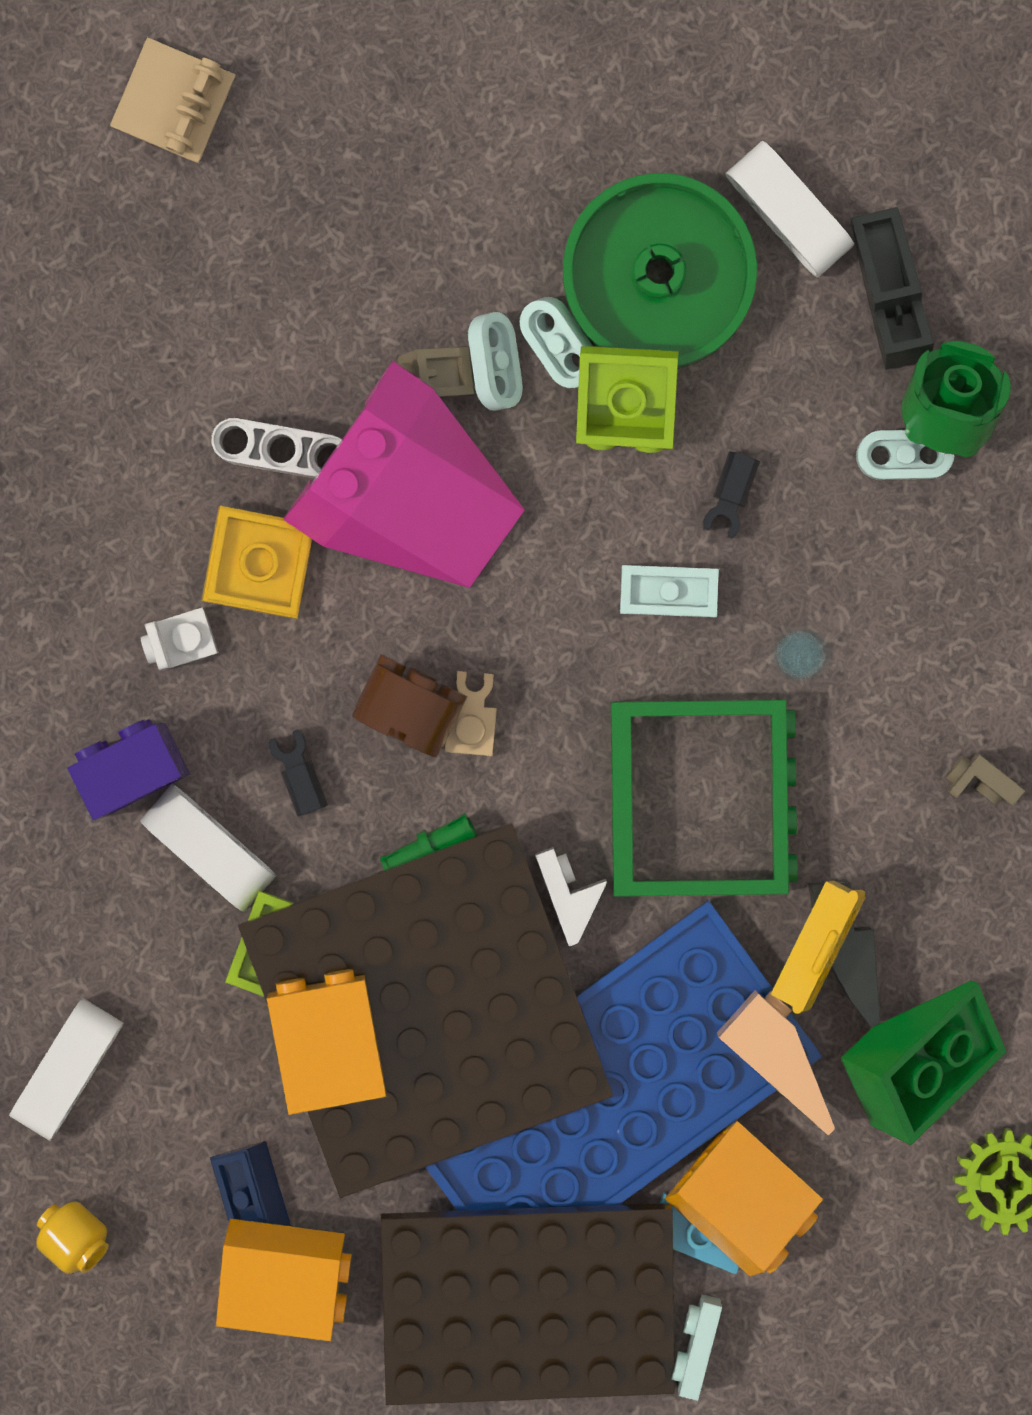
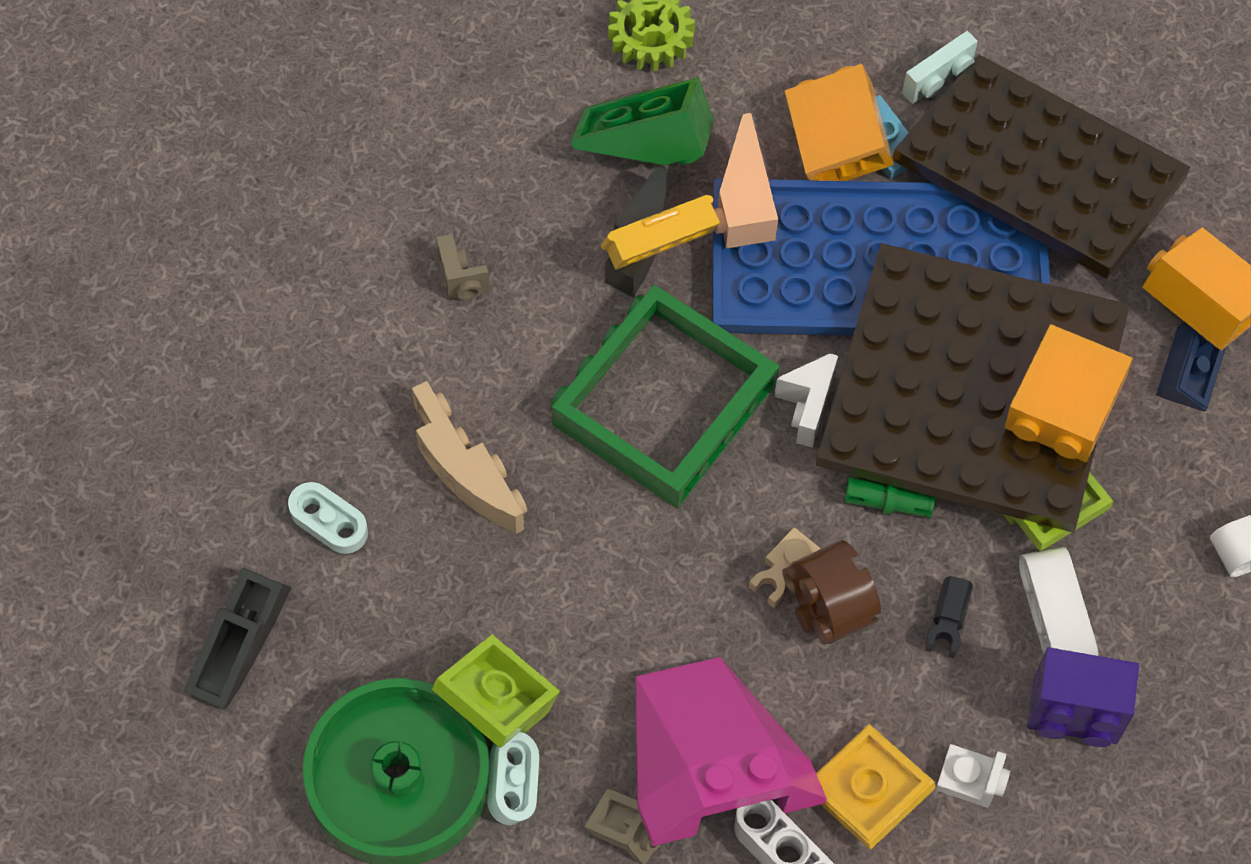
camera: 145 degrees left, 25 degrees down
(495, 361) = (573, 800): light aqua plate -> none
(669, 591) = (574, 546): light aqua plate -> none
(732, 490) = (473, 582): black bar -> none
(790, 209) = (262, 748): white beam -> none
(799, 654) = (515, 444): clear light blue piece -> none
(809, 587) = (465, 470): none -> tan slope
(954, 399) = (261, 518): green brick -> none

